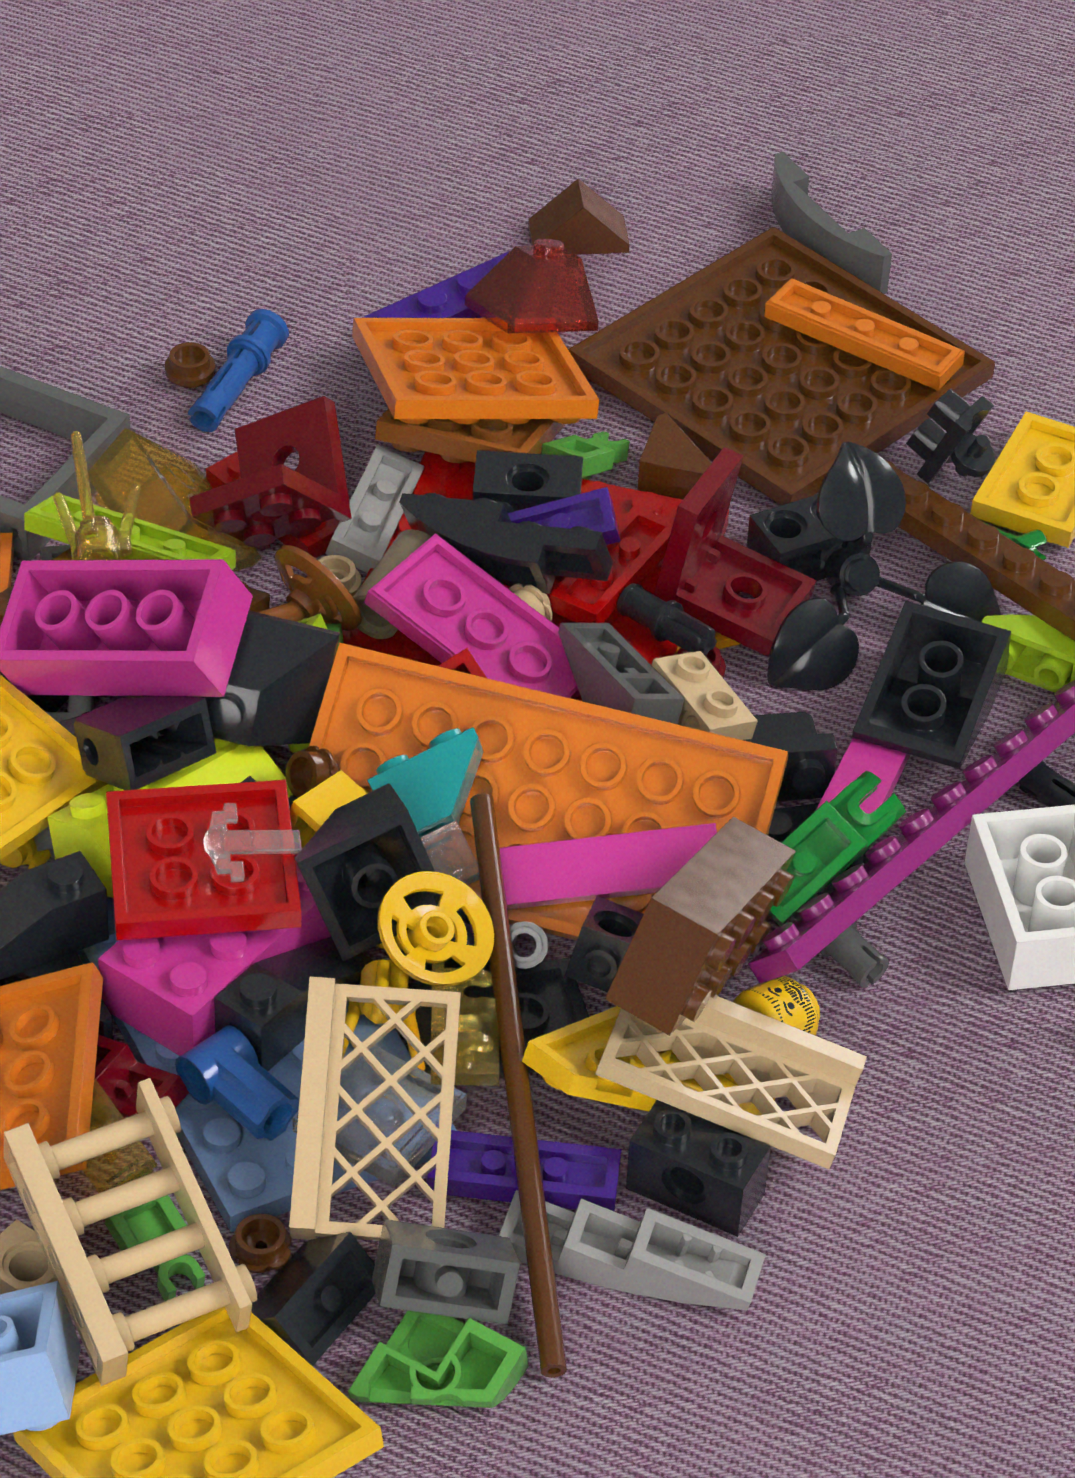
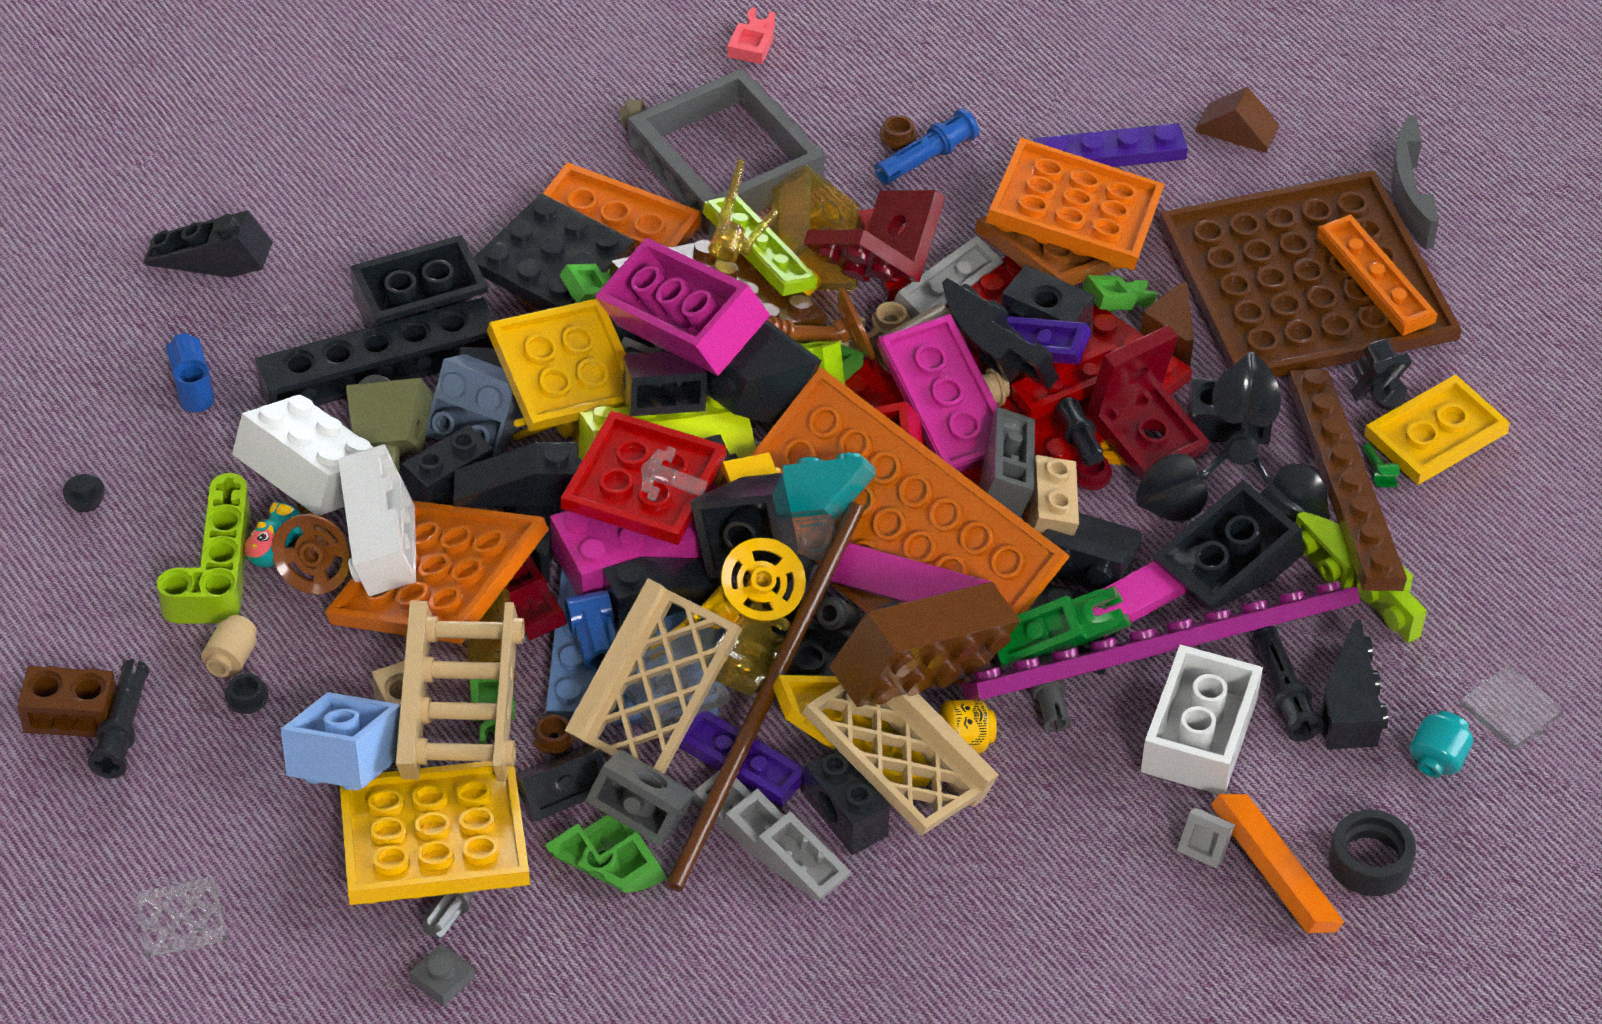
camera: 30 degrees right, 5 degrees up
(309, 769) = (759, 443): reddish brown plate -> none
(536, 291) = (1160, 162): clear red slope -> none

